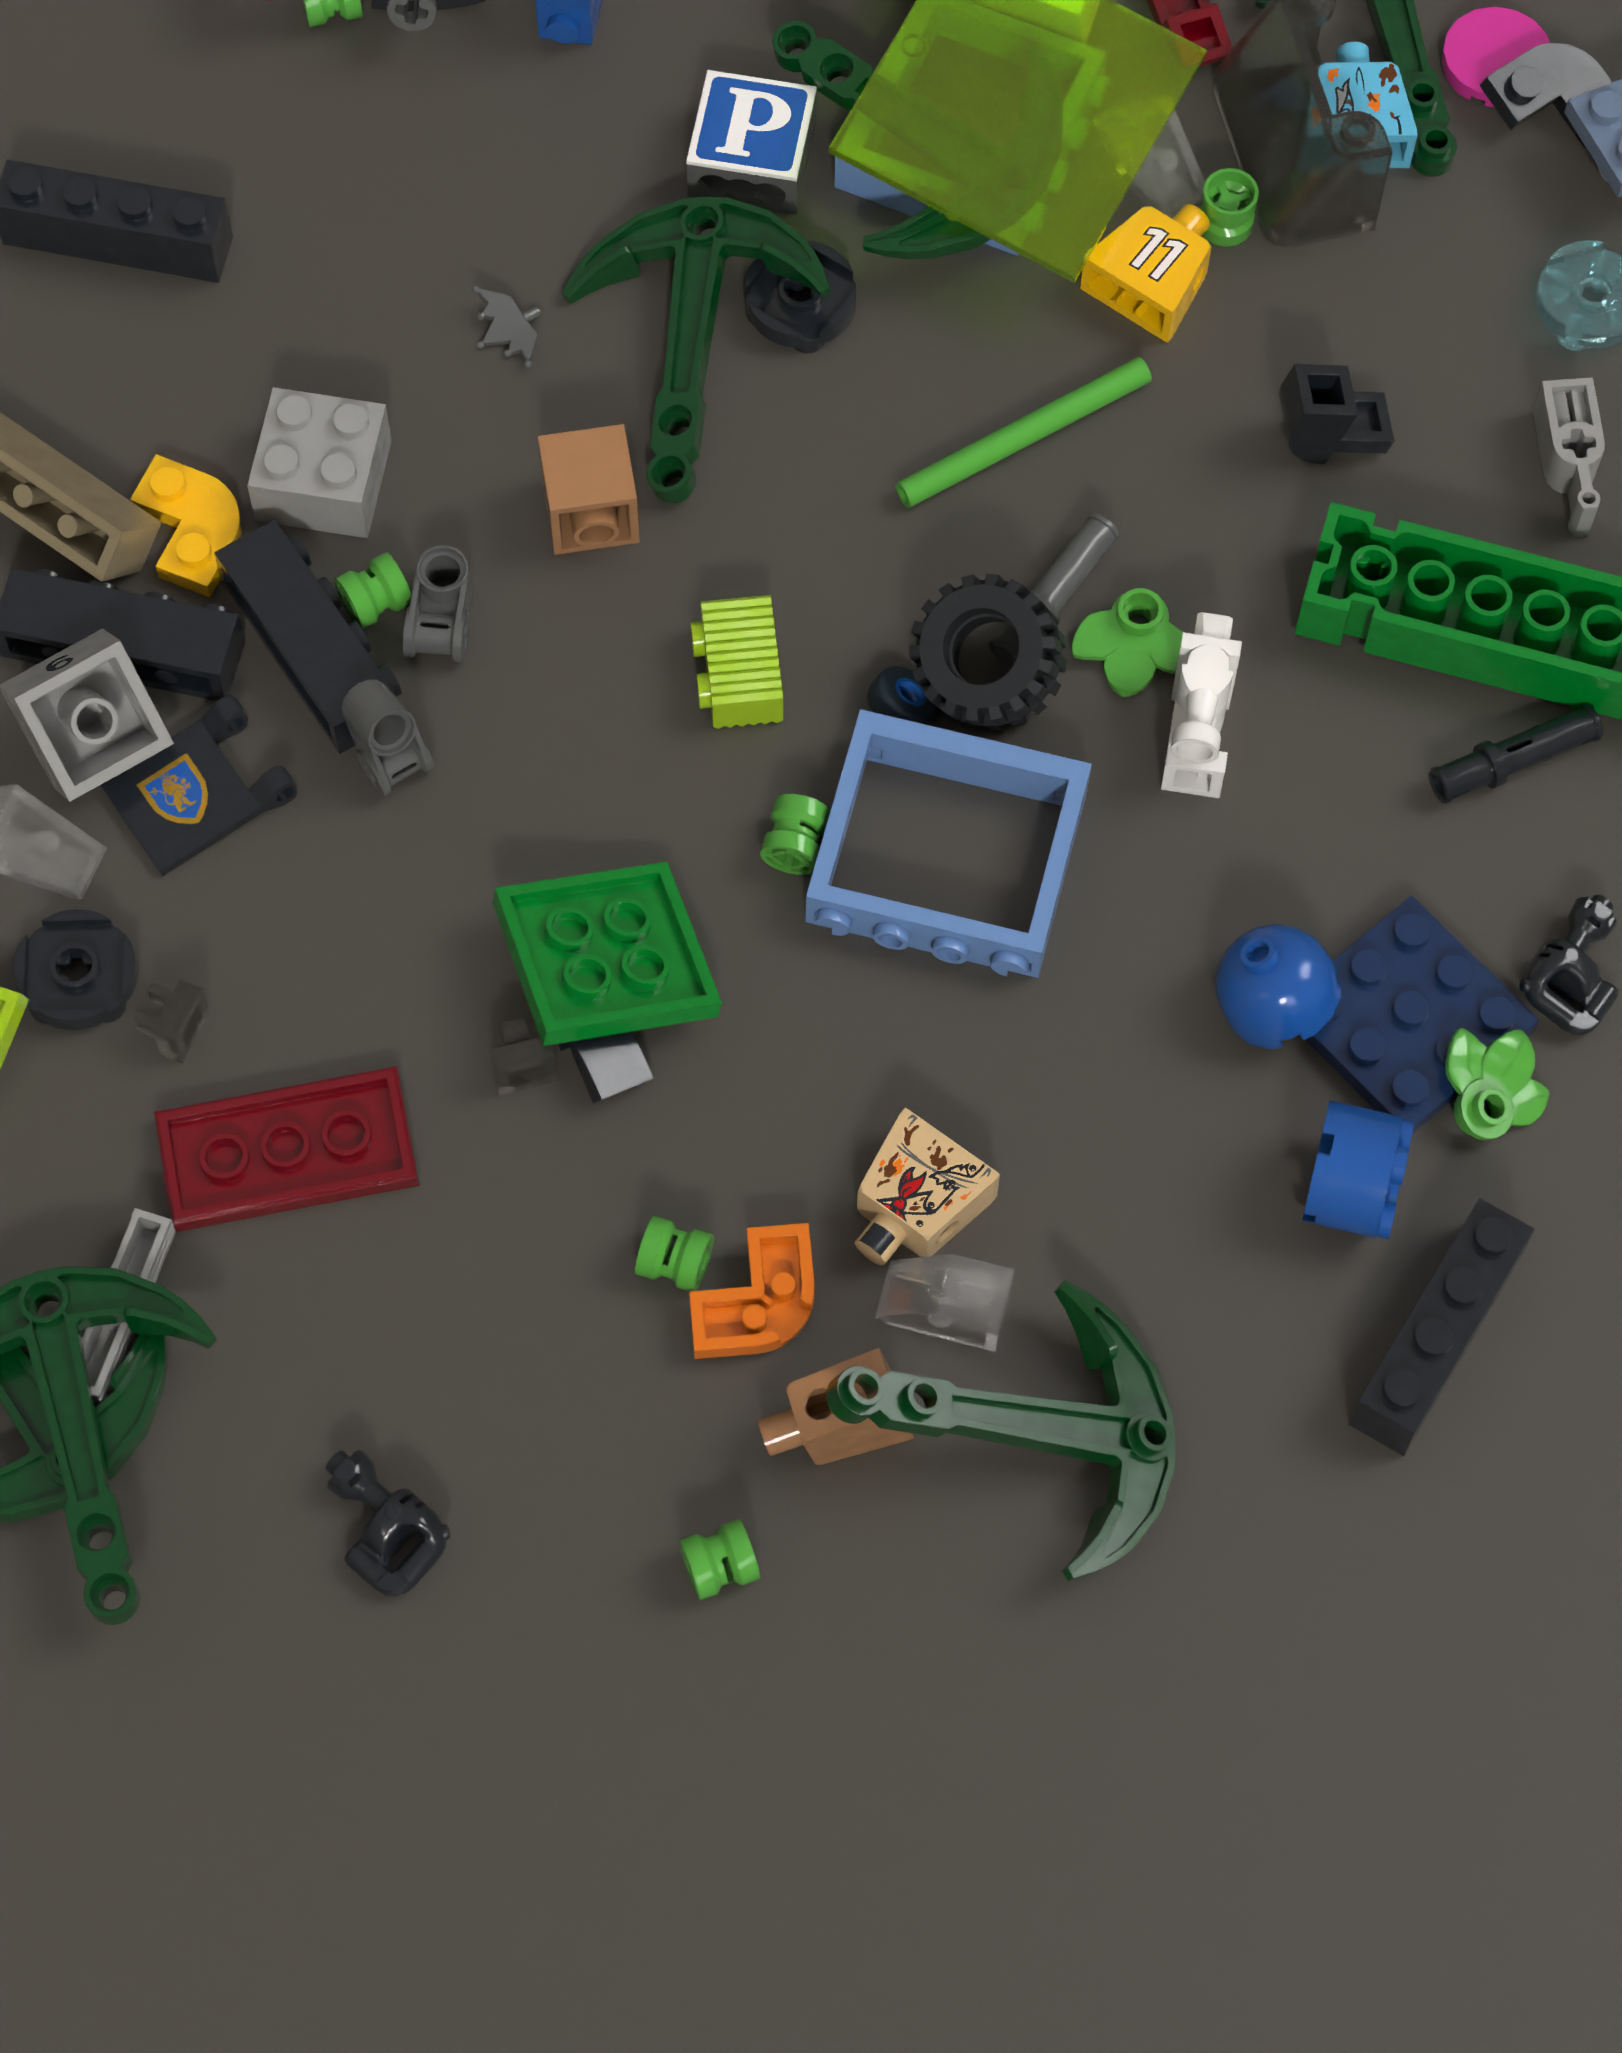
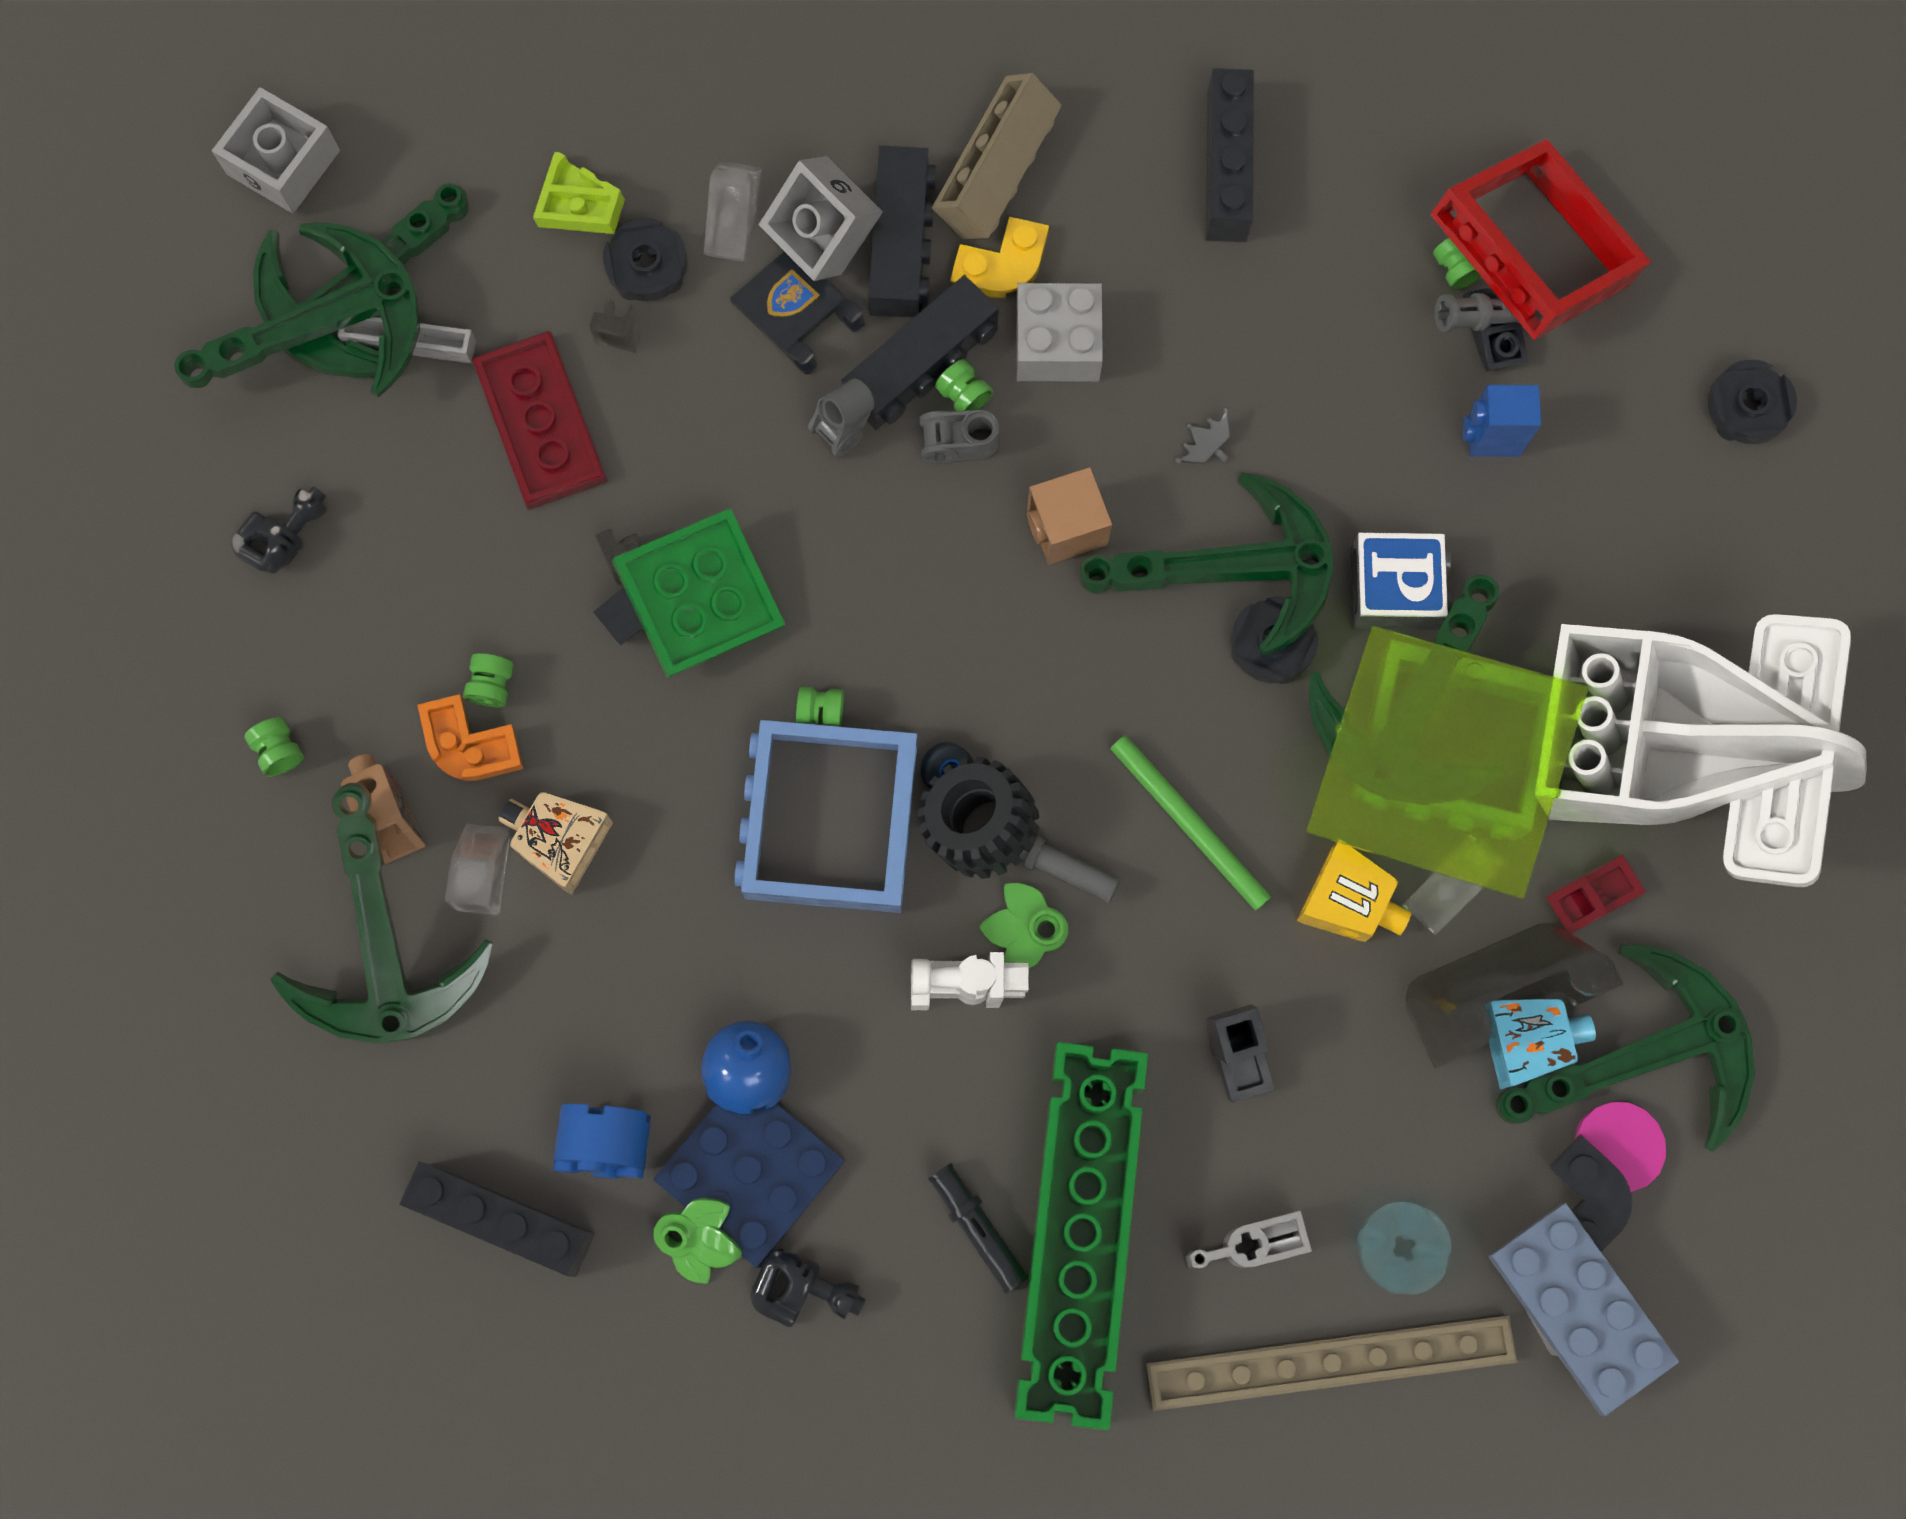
camera: 80 degrees right, 10 degrees up
(740, 661) = (953, 646): lime brick -> none
(1230, 205) = (1427, 943): bright green wheel -> none

